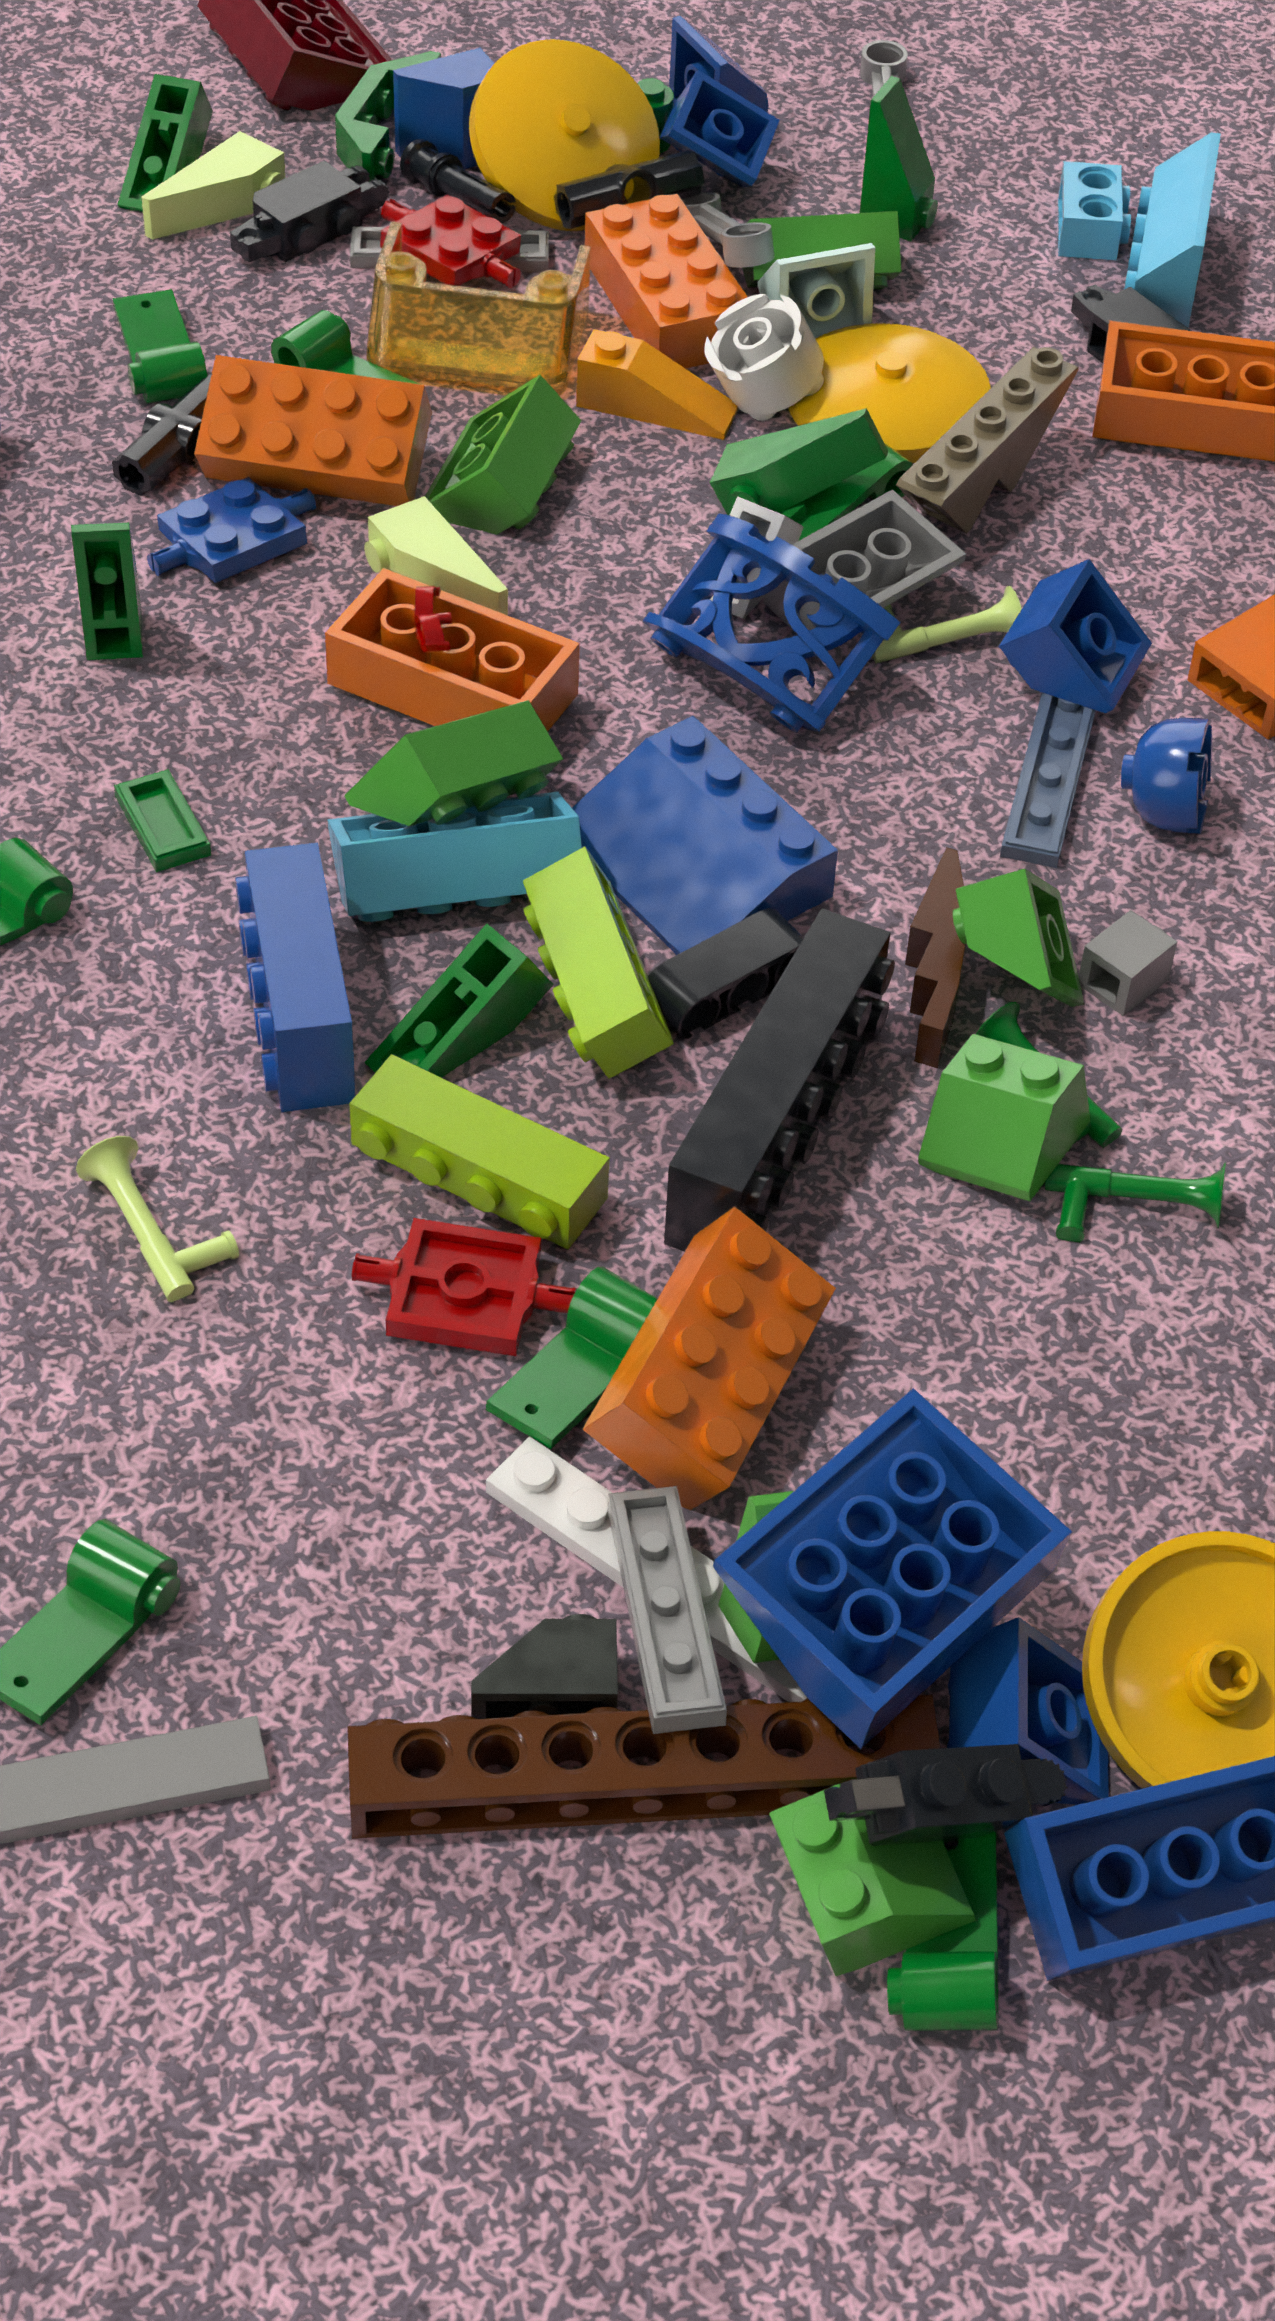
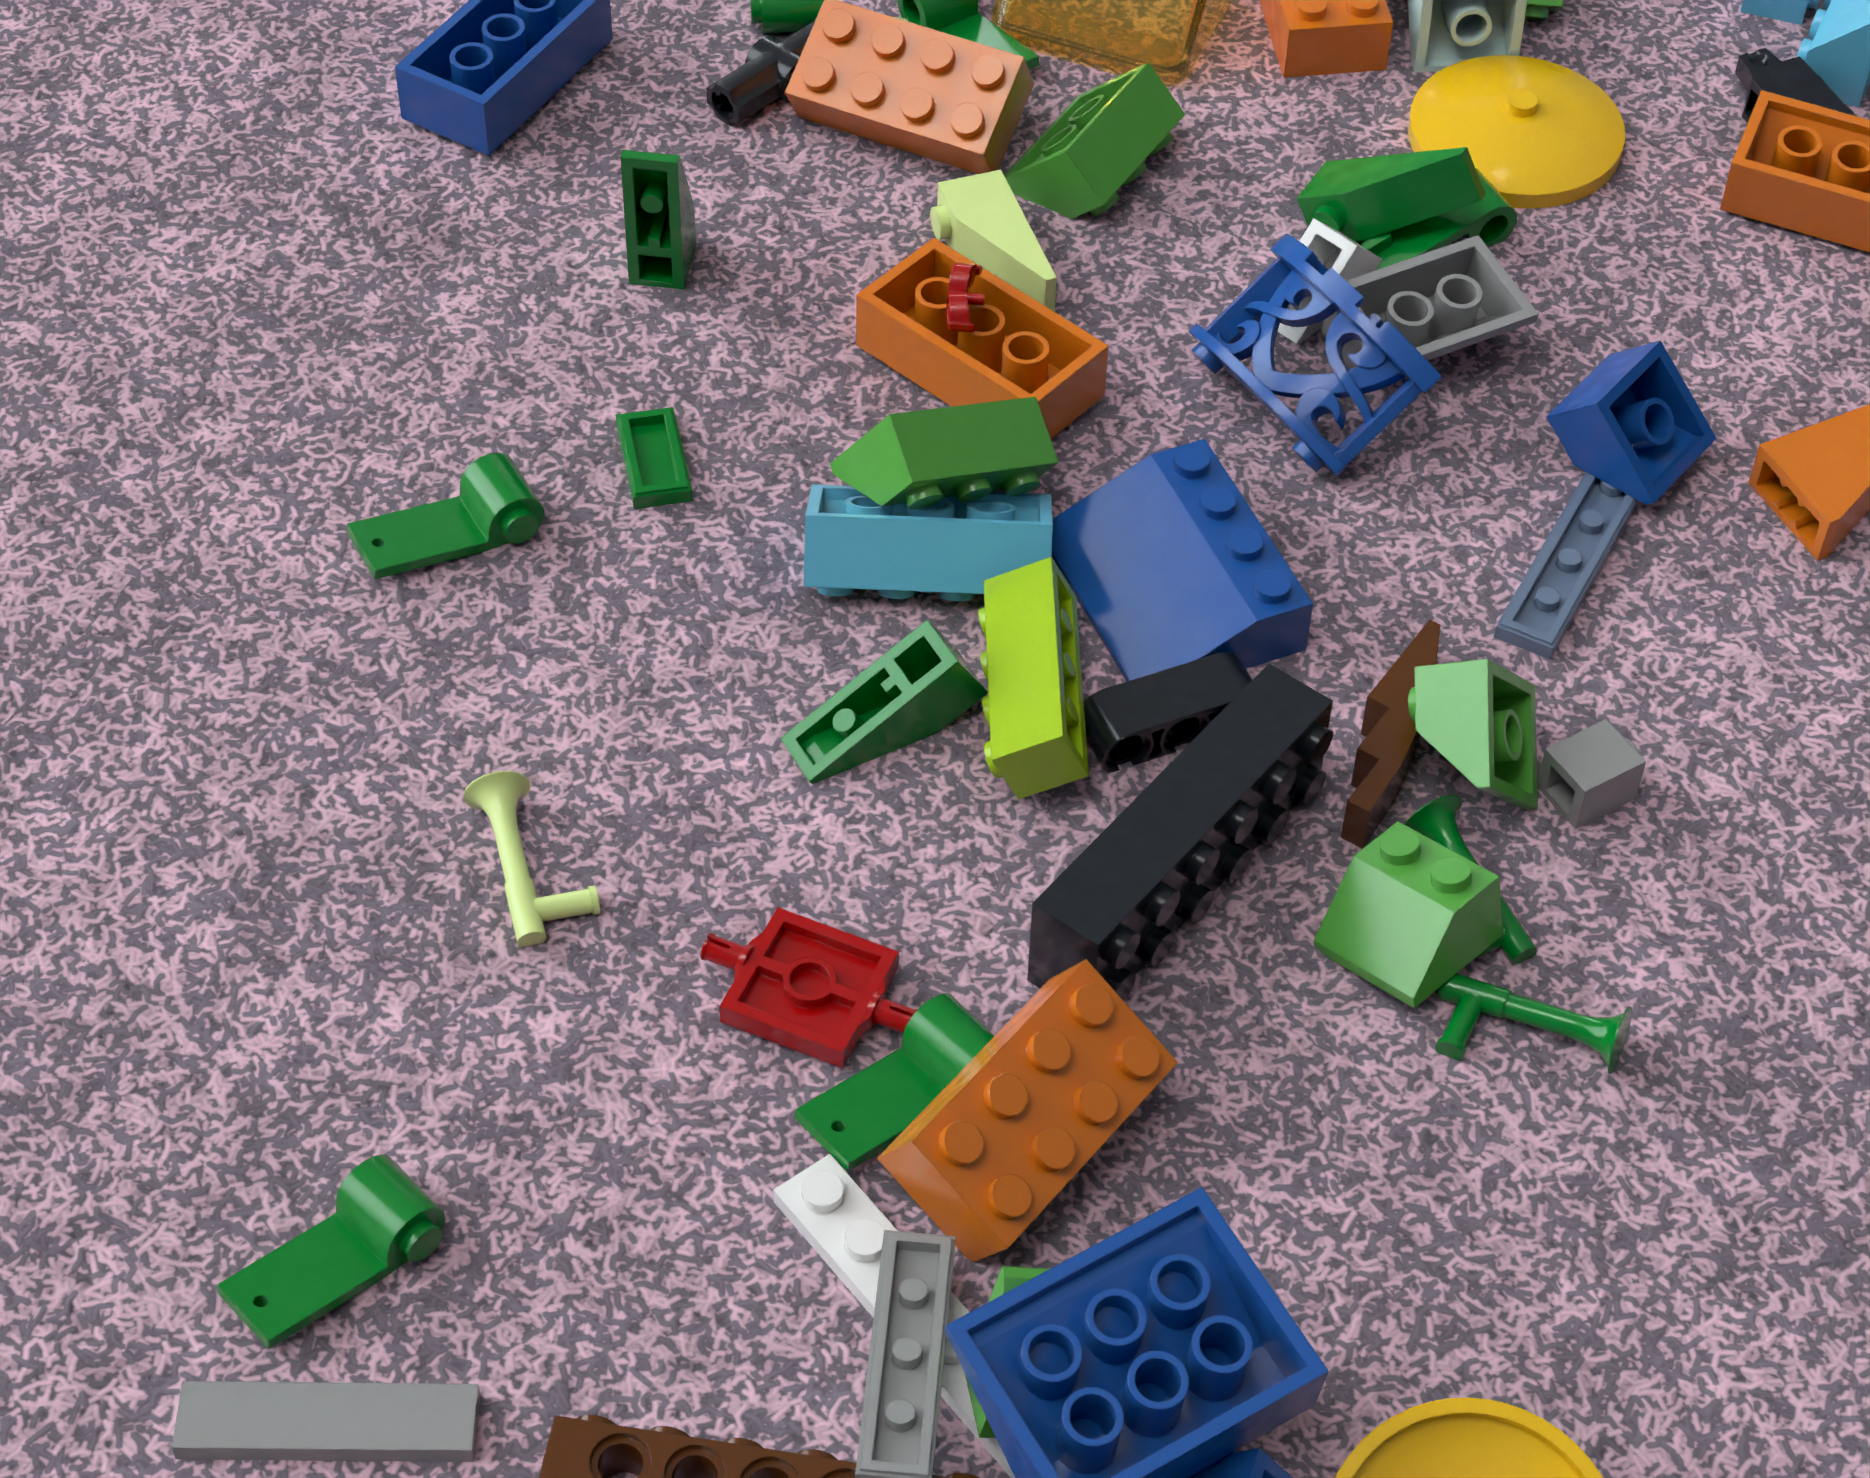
camera: 15 degrees right, 0 degrees up
(231, 530) = (806, 174): blue plate -> none
(296, 978) = (727, 642): brick -> none
(479, 1151) = (862, 852): lime brick -> none
(552, 1670) = (780, 1401): pearl dark grey slope -> none
(643, 384) = (1265, 88): light orange slope -> none
(765, 355) = (1391, 75): white brick -> none
(918, 639) = (1454, 396): yellowish green piece -> none
(989, 441) = (1600, 198): dark tan slope -> none
(1171, 774) = (1694, 581): blue cylinder -> none

